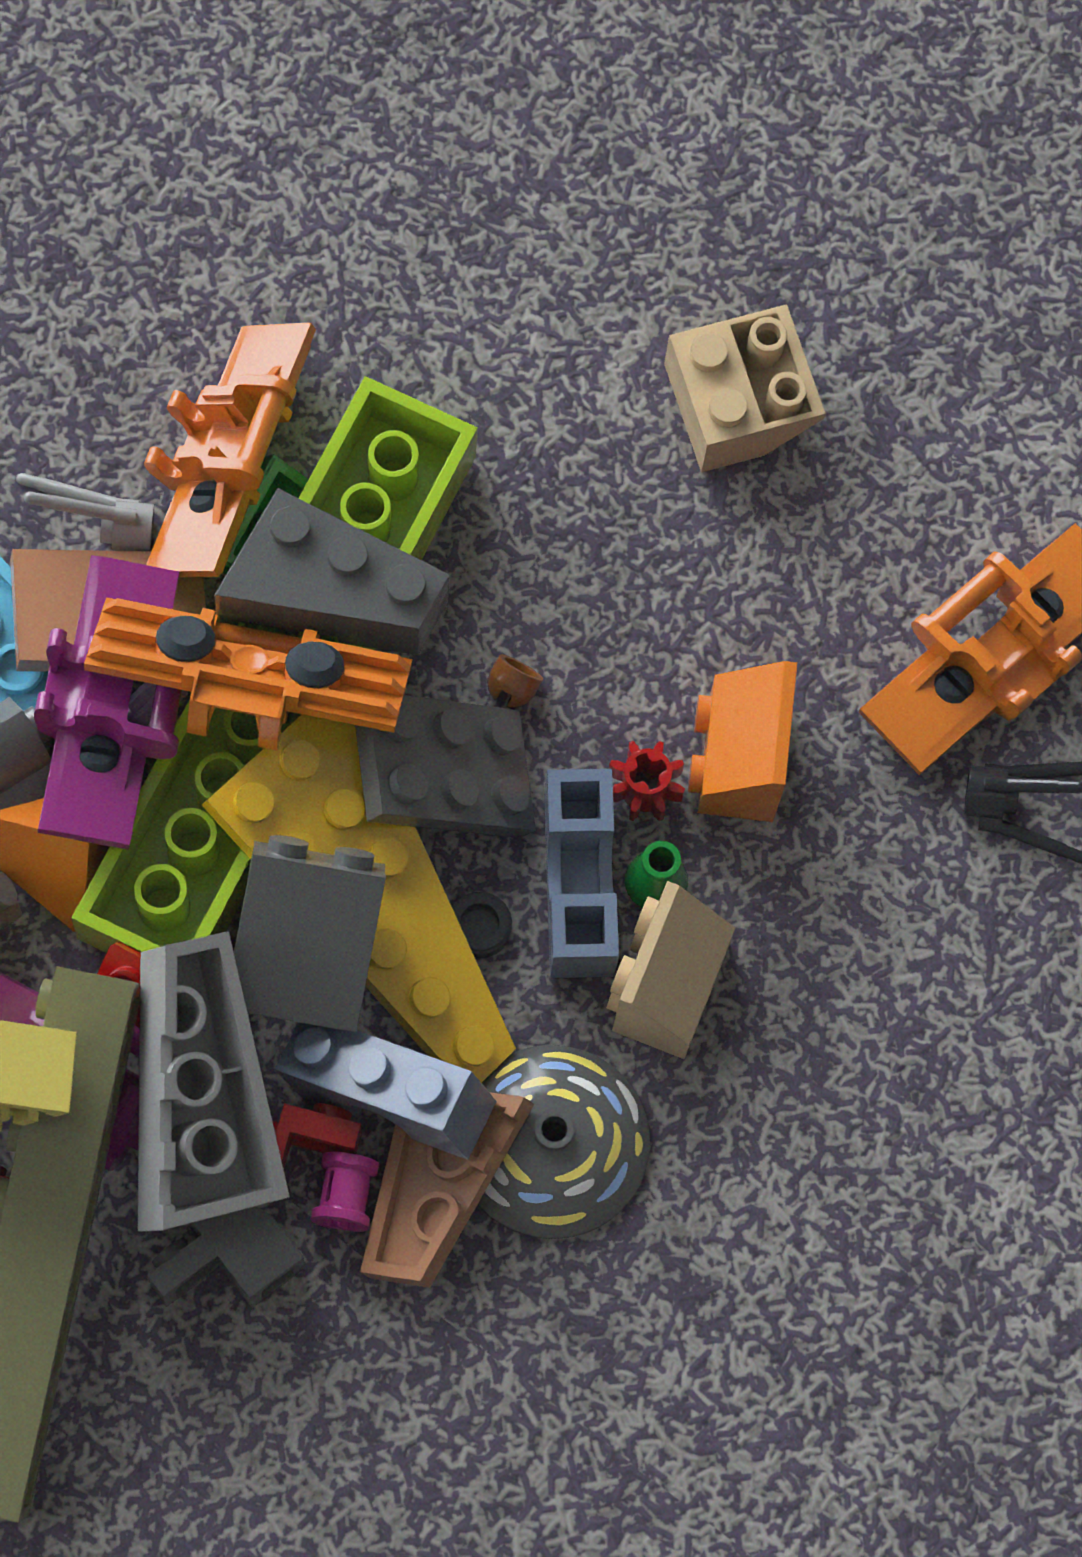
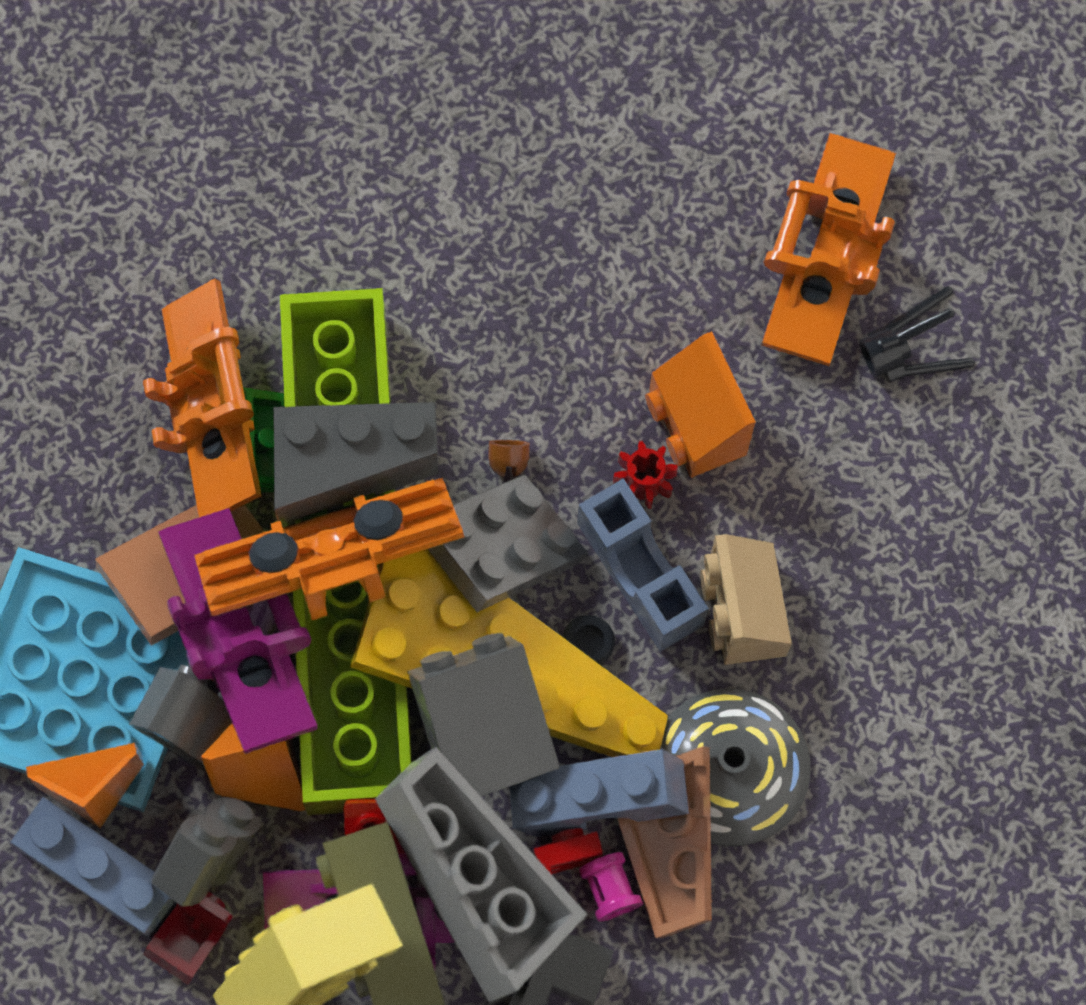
camera: 25 degrees left, 0 degrees up
(123, 521) = (161, 495): light grey plant -> none
(644, 881) = (689, 546): green cone -> none
(742, 386) = (546, 160): tan slope -> none

